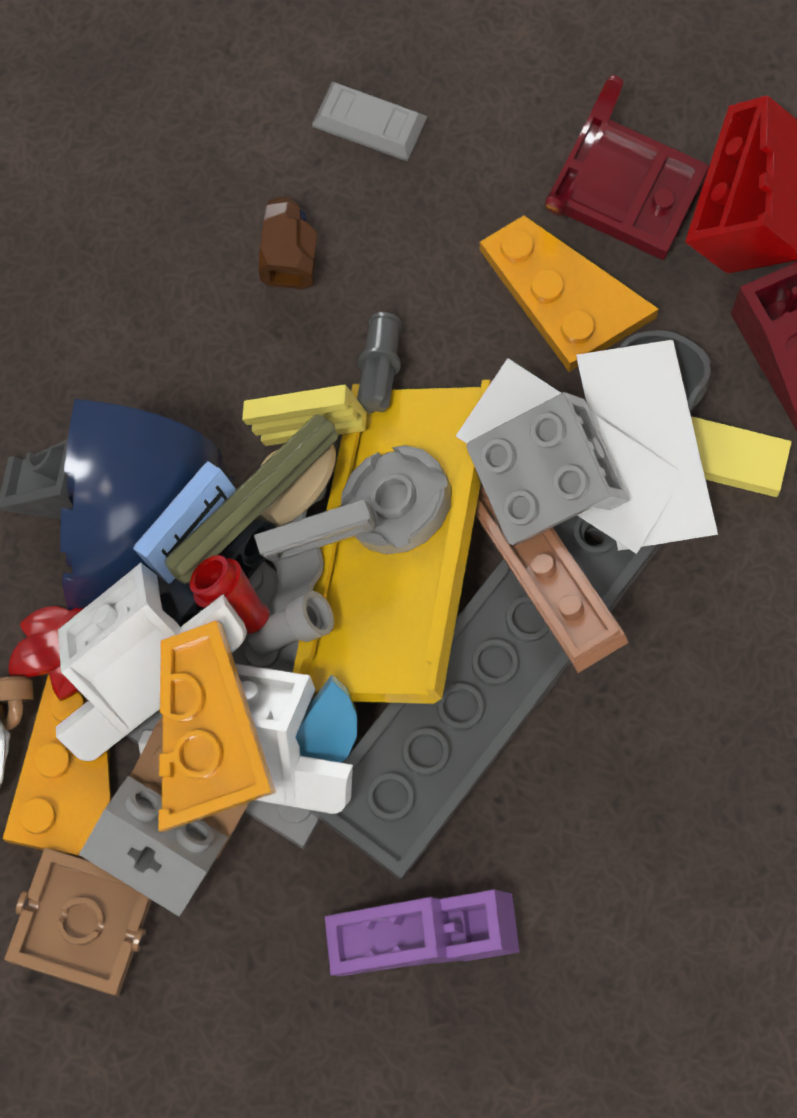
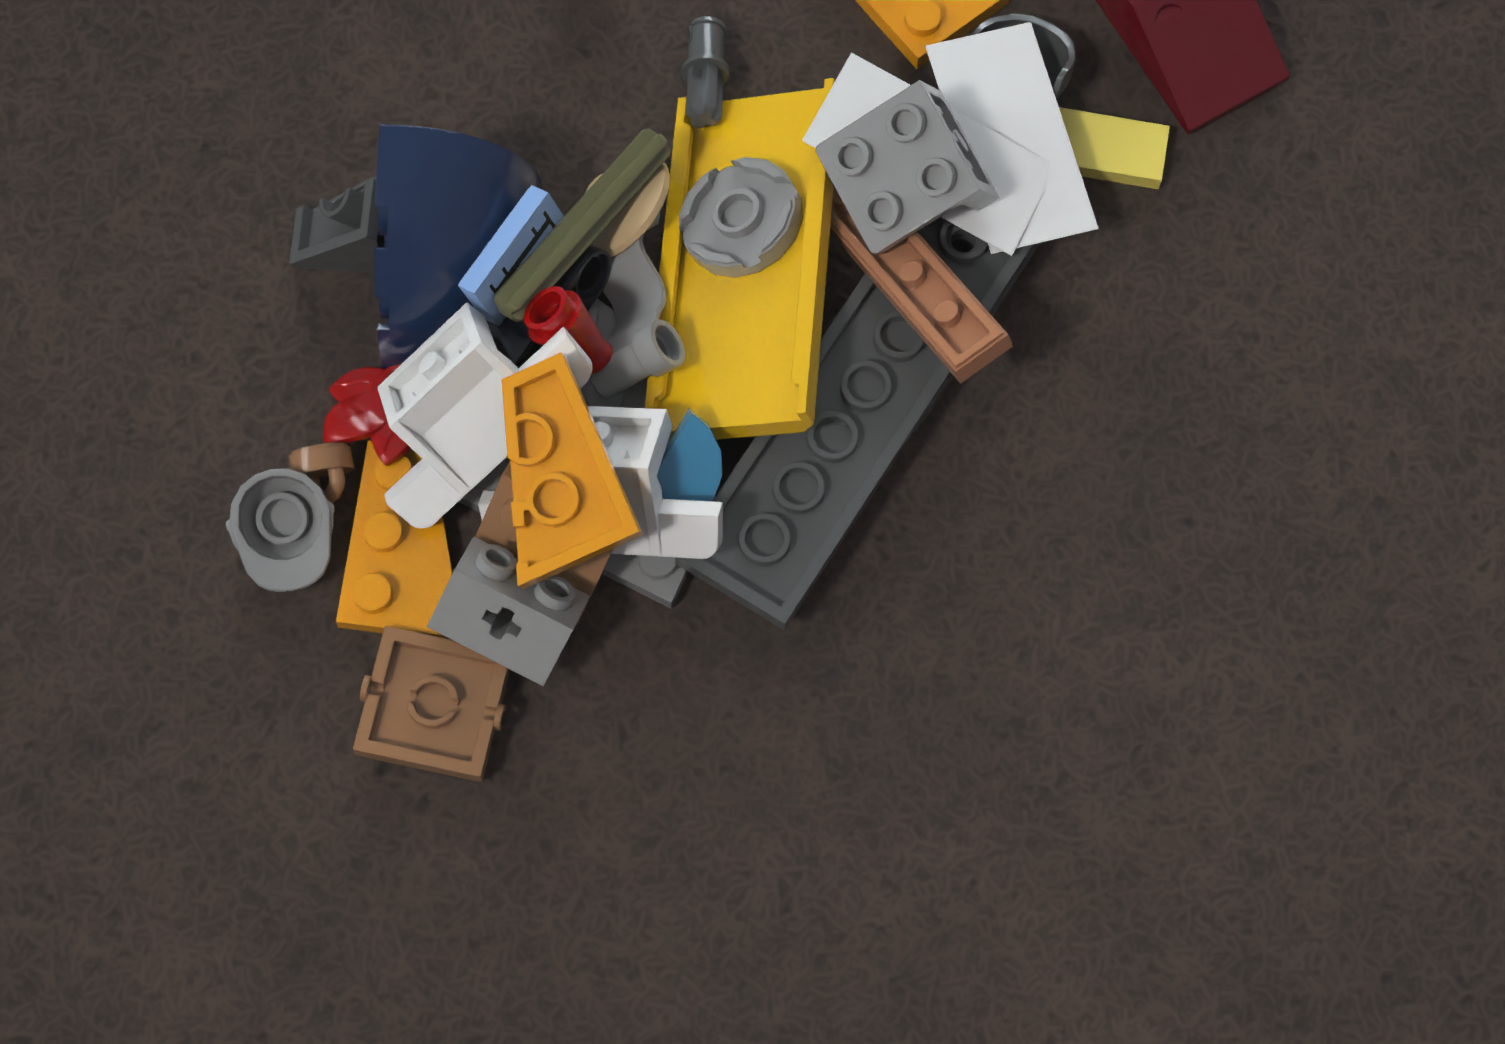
camera: 10 degrees left, 0 degrees up
(283, 415) = (605, 135): light yellow tile -> none
(316, 531) = (658, 254): light grey tile -> none
(422, 933) = (812, 683): medium lavender slope -> none

